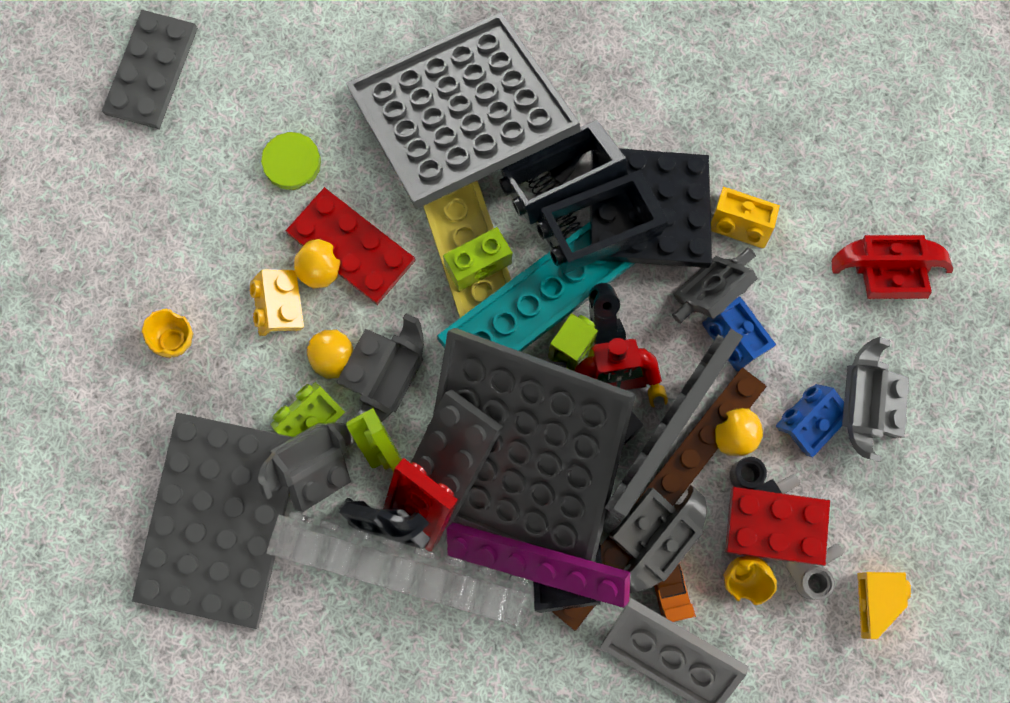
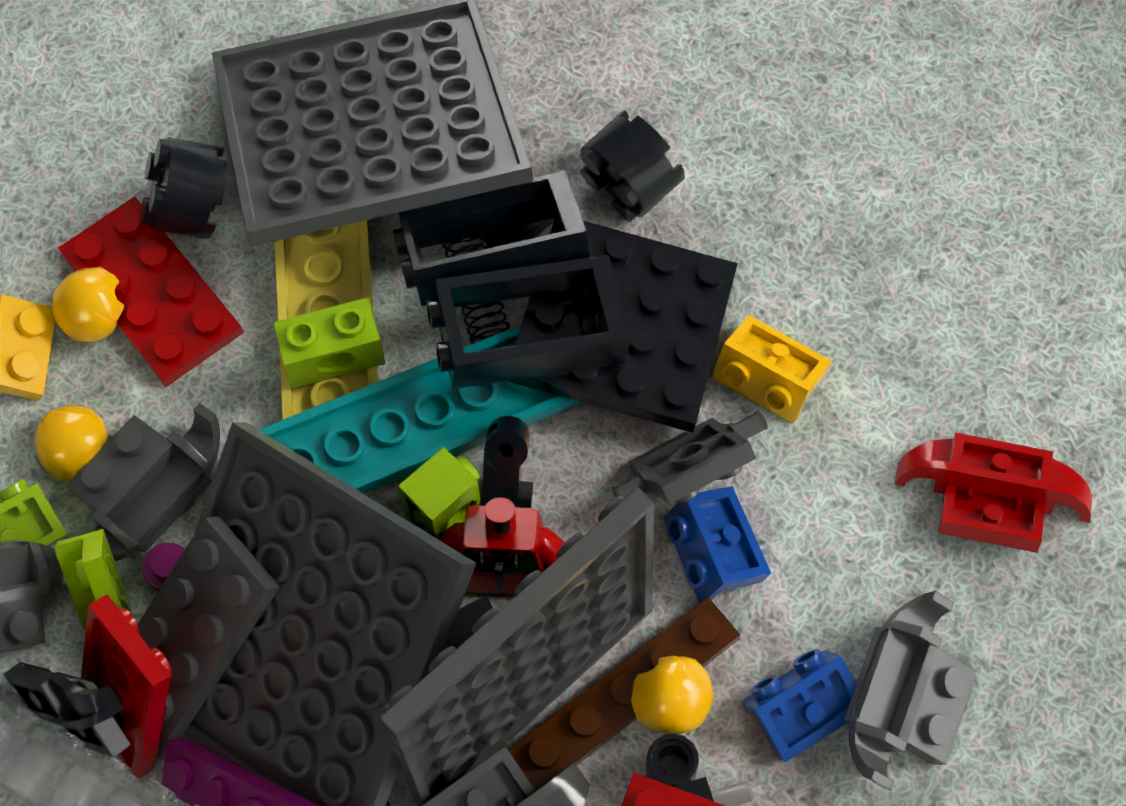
camera: 15 degrees right, 10 degrees down
(291, 160) = (98, 149): lime tile -> none
(358, 177) = (185, 187): none -> black brick
(412, 419) = (160, 562): none -> magenta plate
(630, 106) = (630, 165): none -> black brick

